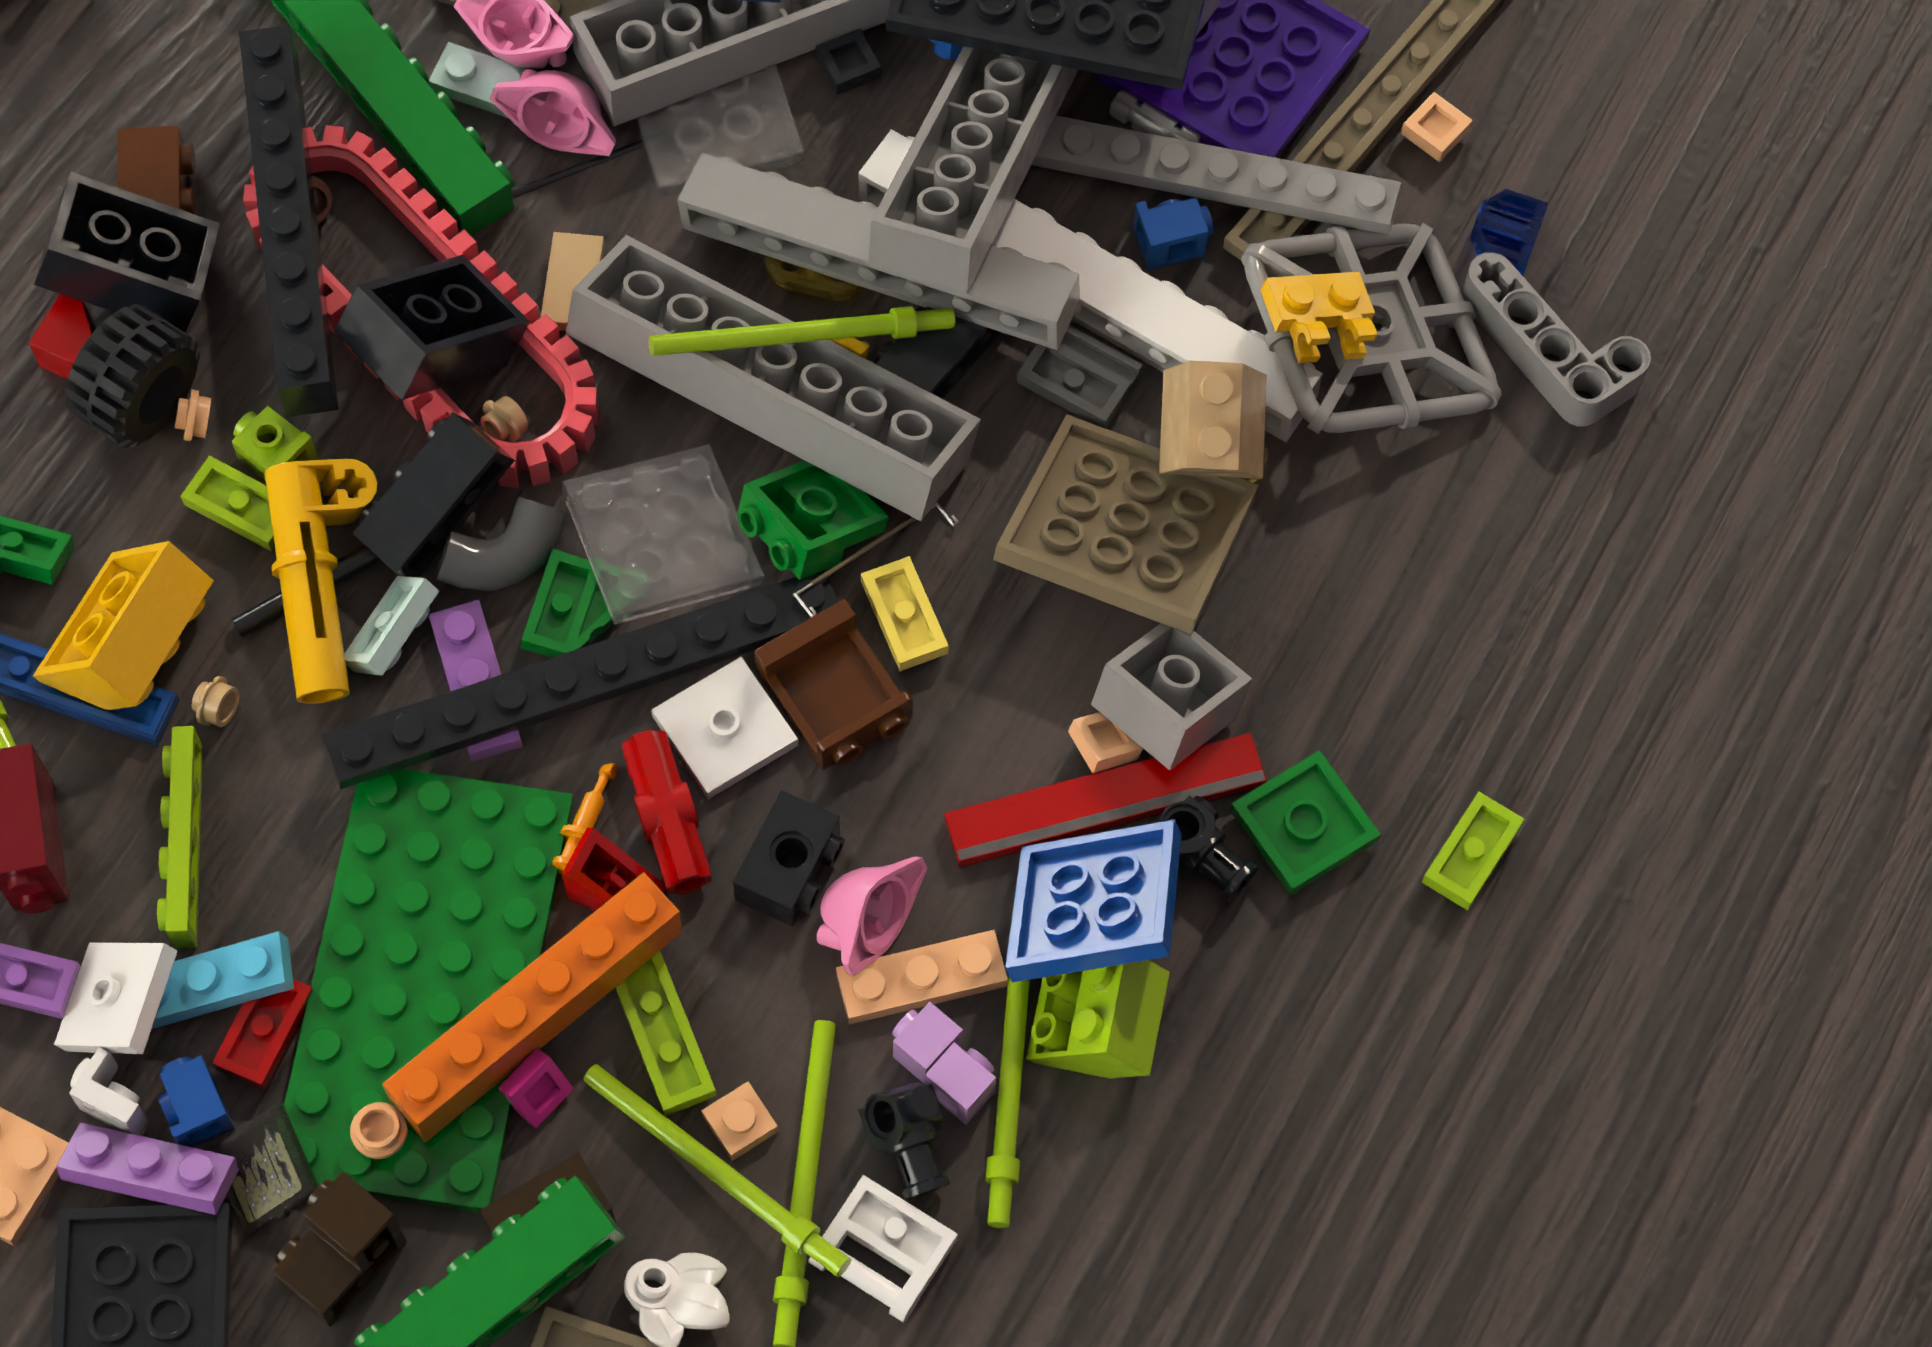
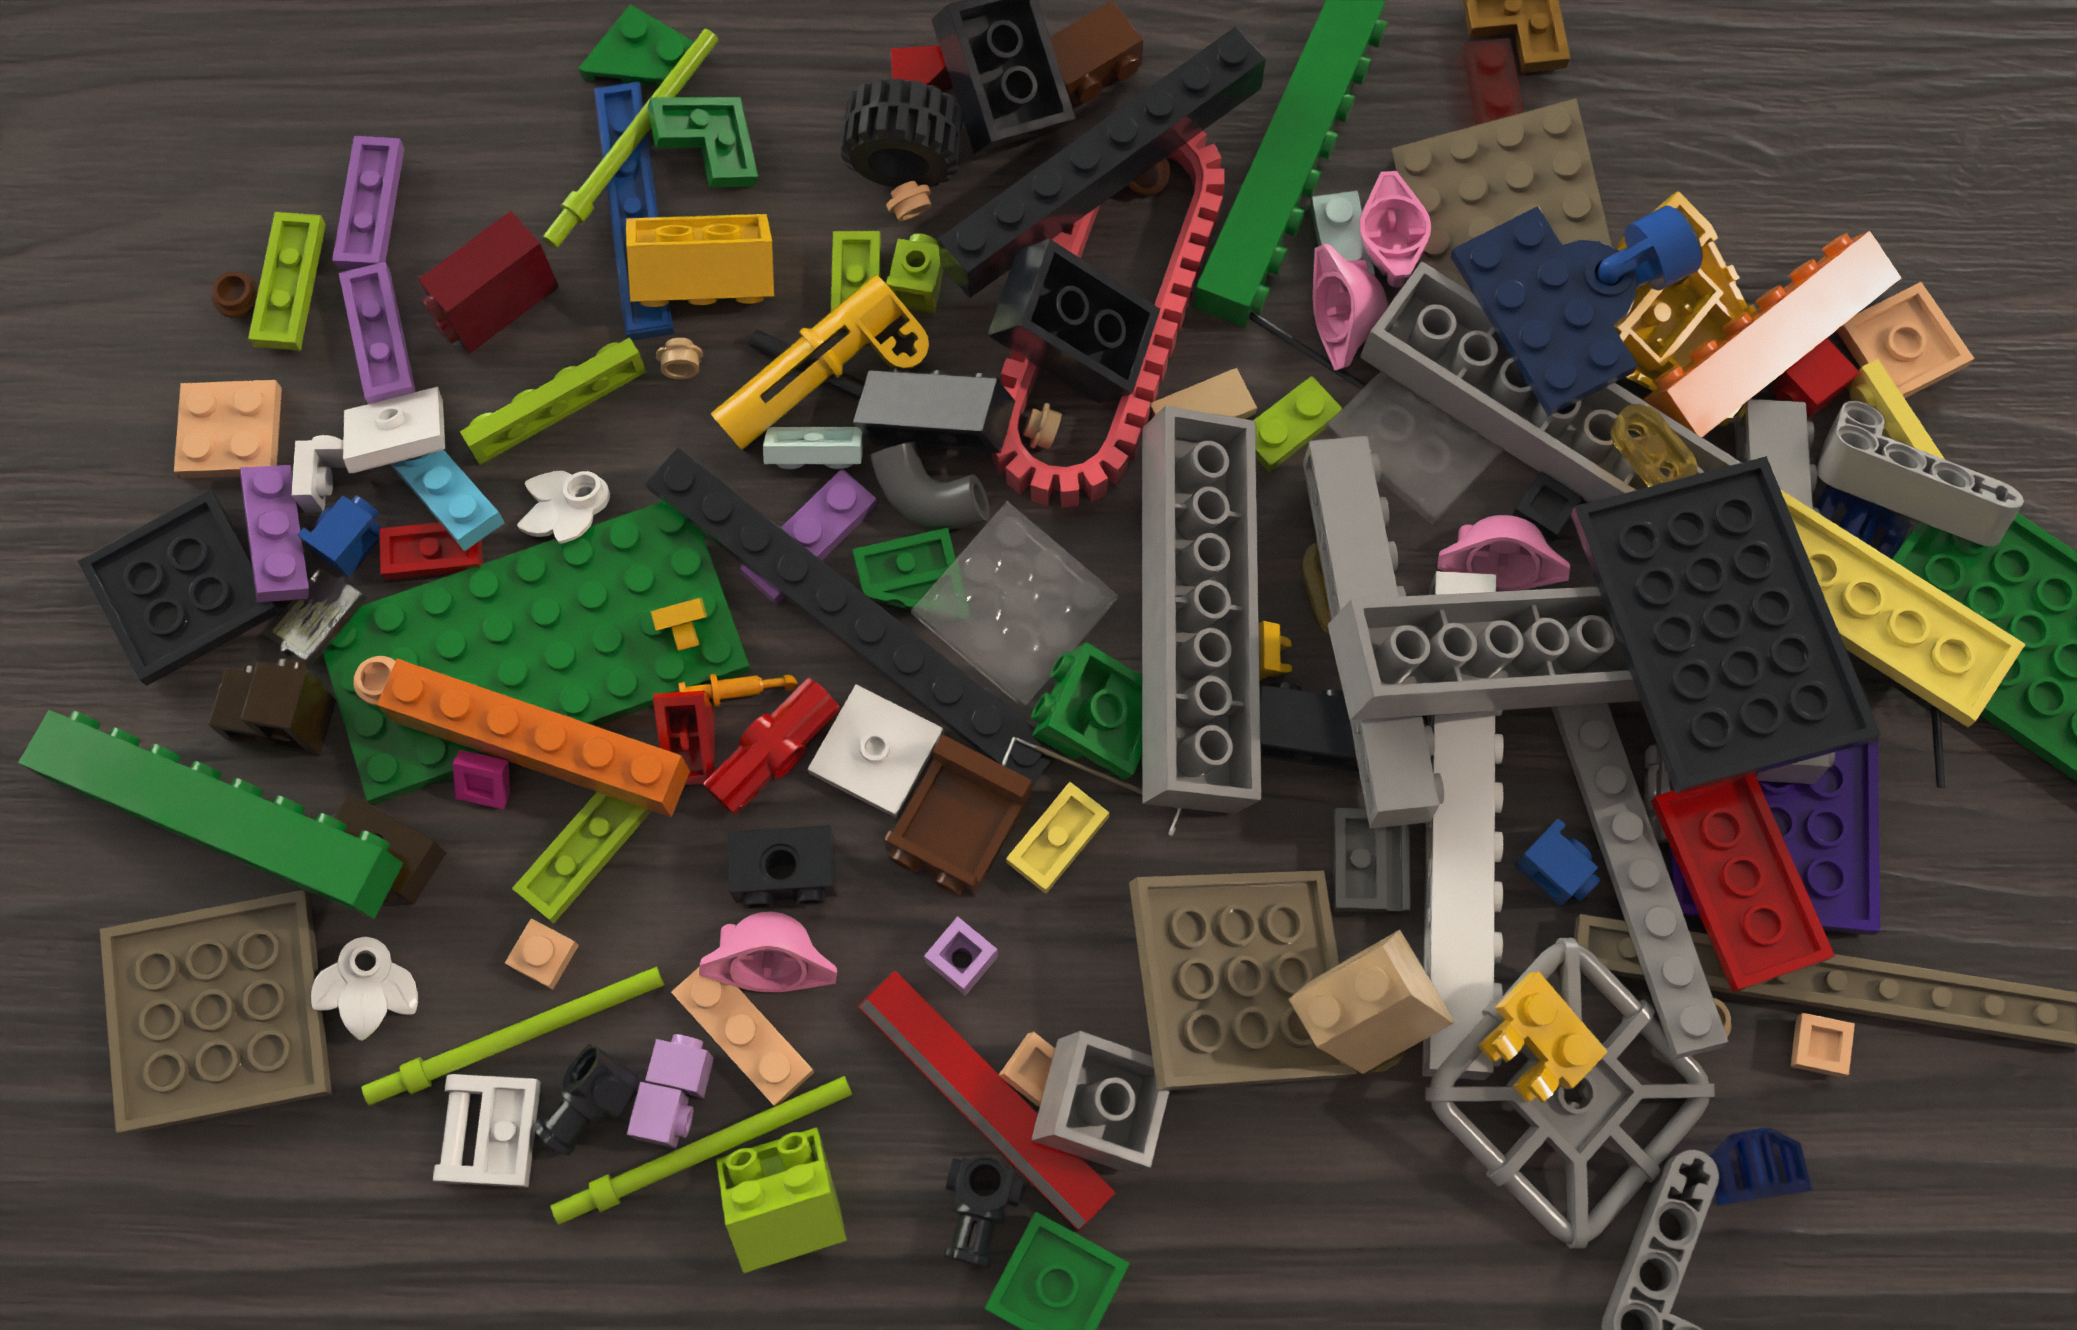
camera: 65 degrees right, 5 degrees up
(295, 886) = (564, 504): none -> white plate
(499, 820) = (680, 619): none -> yellow tile
(634, 208) = (1293, 423): none -> lime plate
(797, 1232) = (457, 1053): lime bar -> none
(869, 110) = (1508, 549): none -> bright pink hat
(900, 323) = (1309, 683): lime bar -> none
(967, 732) = (956, 939): none -> lavender plate
(1094, 901) = (864, 1141): plate -> none
(1272, 99) = (1743, 881): none -> red plate

